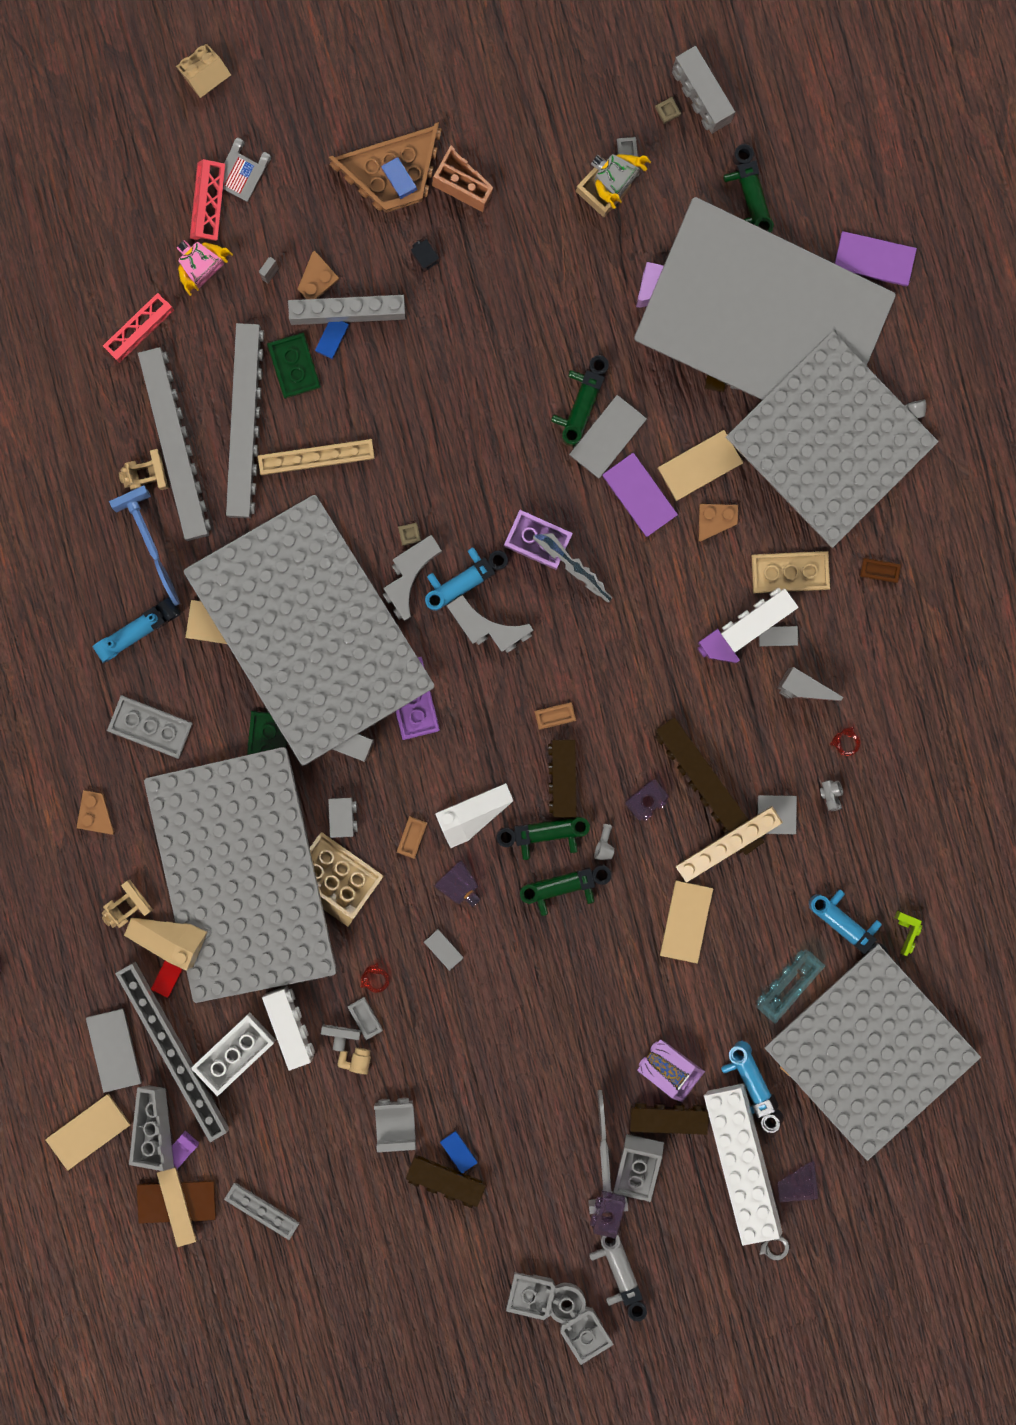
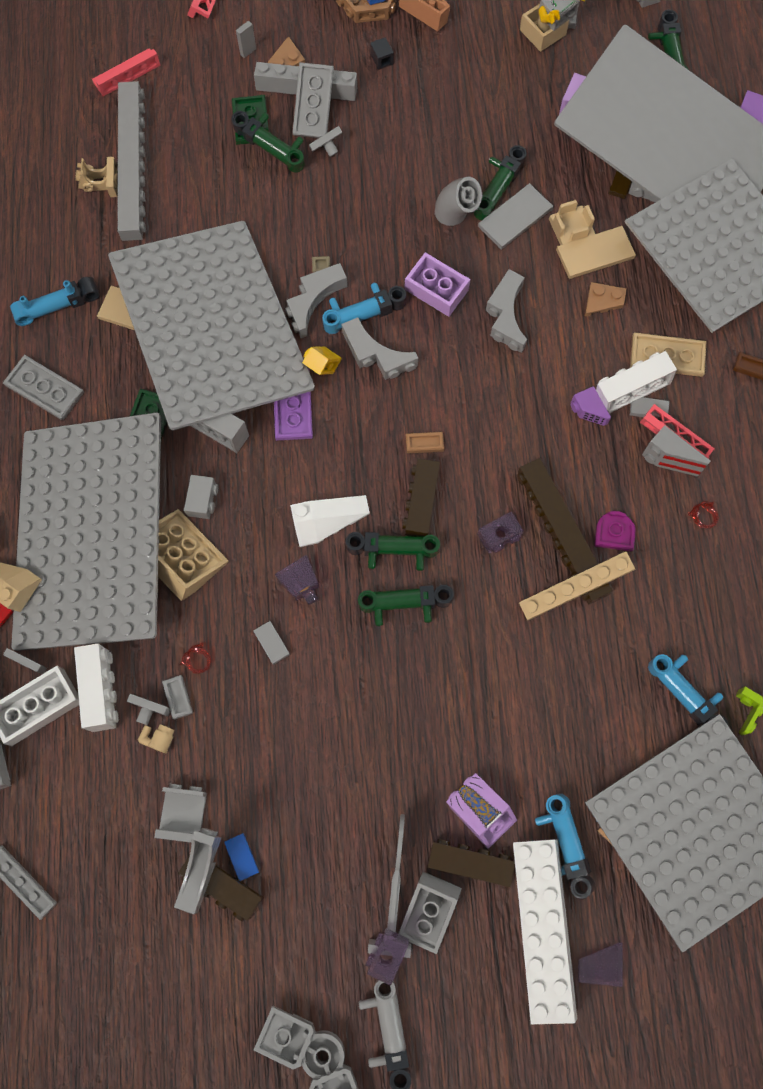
camera: 10 degrees right, 15 degrees down
(130, 501) = (79, 197): medium blue piece -> none
(199, 263) = (191, 29): torso -> none
(211, 1012) = (25, 661): none -> light grey tile
(244, 421) = (195, 153): light grey brick -> none
(316, 457) = (252, 190): tan plate -> none
(322, 397) = (256, 134): none -> dark green piece
(331, 339) = (285, 106): blue tile -> none
(361, 338) = (313, 100): none -> light grey tile
(386, 384) = (326, 141): none -> light grey tile
(412, 837) = (264, 529): medium nougat tile -> none
(426, 1176) = (198, 871): none -> light grey arch
(434, 651) = (321, 360): none -> yellow brick
(544, 441) = (457, 200): none -> light grey brick
(574, 566) = (465, 308): light grey sword -> none
(603, 849) = (450, 573): light grey bar -> none
(610, 548) = (502, 306): none -> light grey arch
(639, 495) = (537, 267): medium lavender tile -> none
(670, 437) = (572, 222): none -> tan panel
(686, 921) = (521, 660): tan tile -> none
(760, 775) = (615, 532): none -> magenta tile
(765, 1249) = (554, 1036): light grey piece -> none
(778, 986) = (644, 722): clear light blue brick -> none
(785, 808) = (635, 580): light grey tile -> none
(826, 680) = (656, 425): none -> coral fence
(831, 791) = (684, 558): light grey plate -> none

